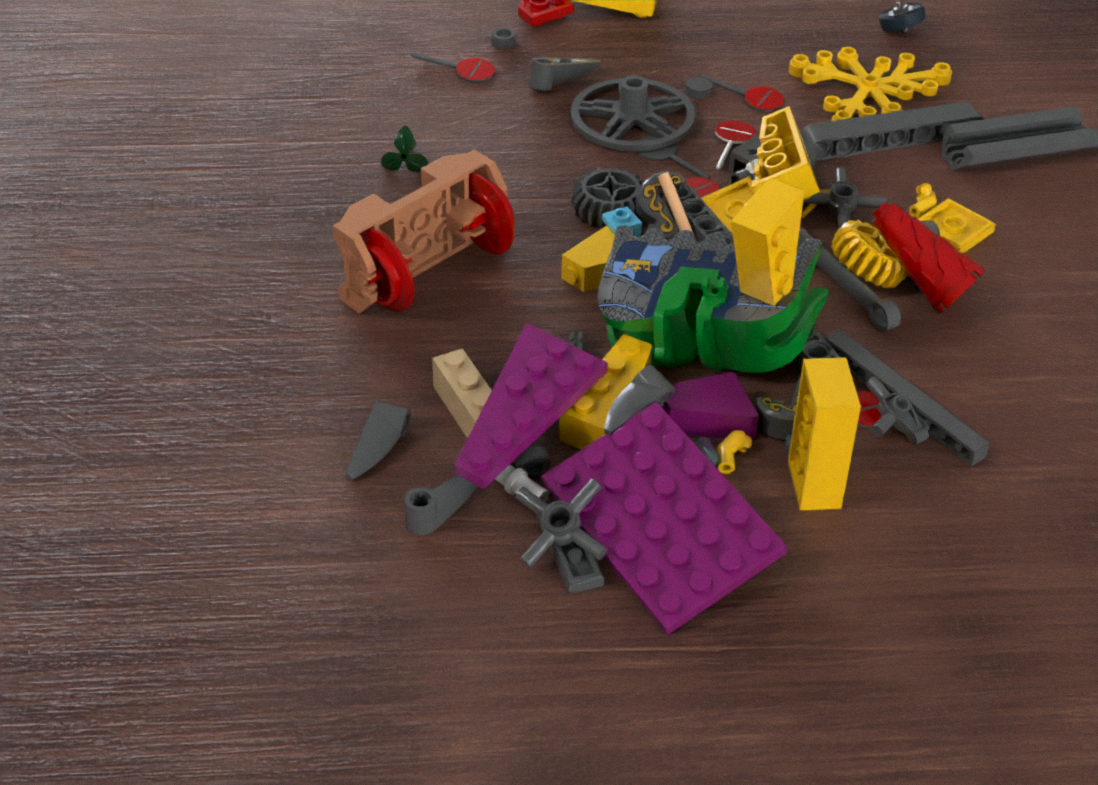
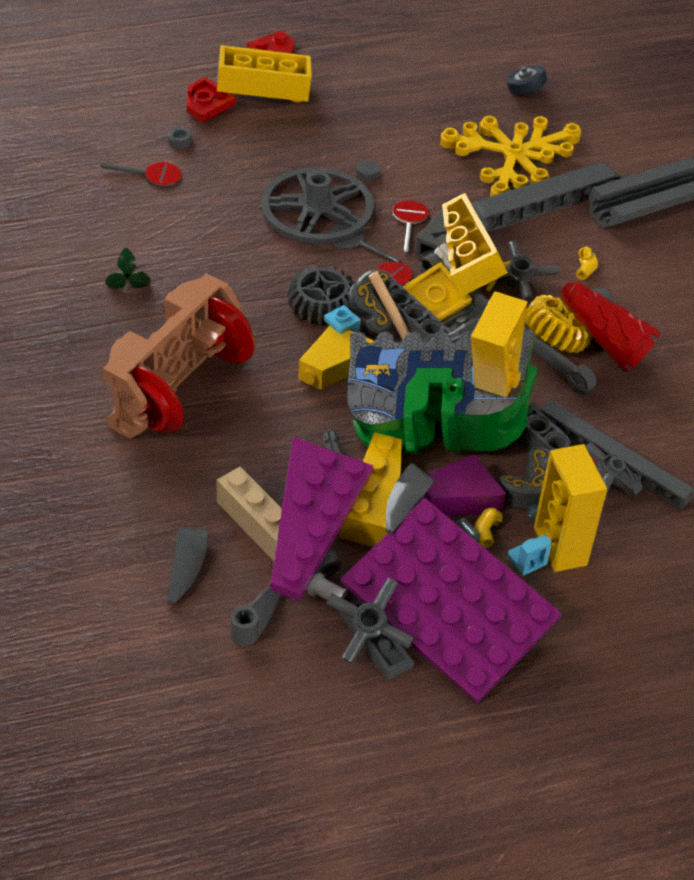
camera: 15 degrees left, 5 degrees up
(558, 70) = (240, 168): dark grey piece -> none
(758, 98) = (422, 174): red piece -> none
(773, 484) = (531, 554): none -> medium azure bracket
(959, 224) = (621, 281): yellow tile -> none

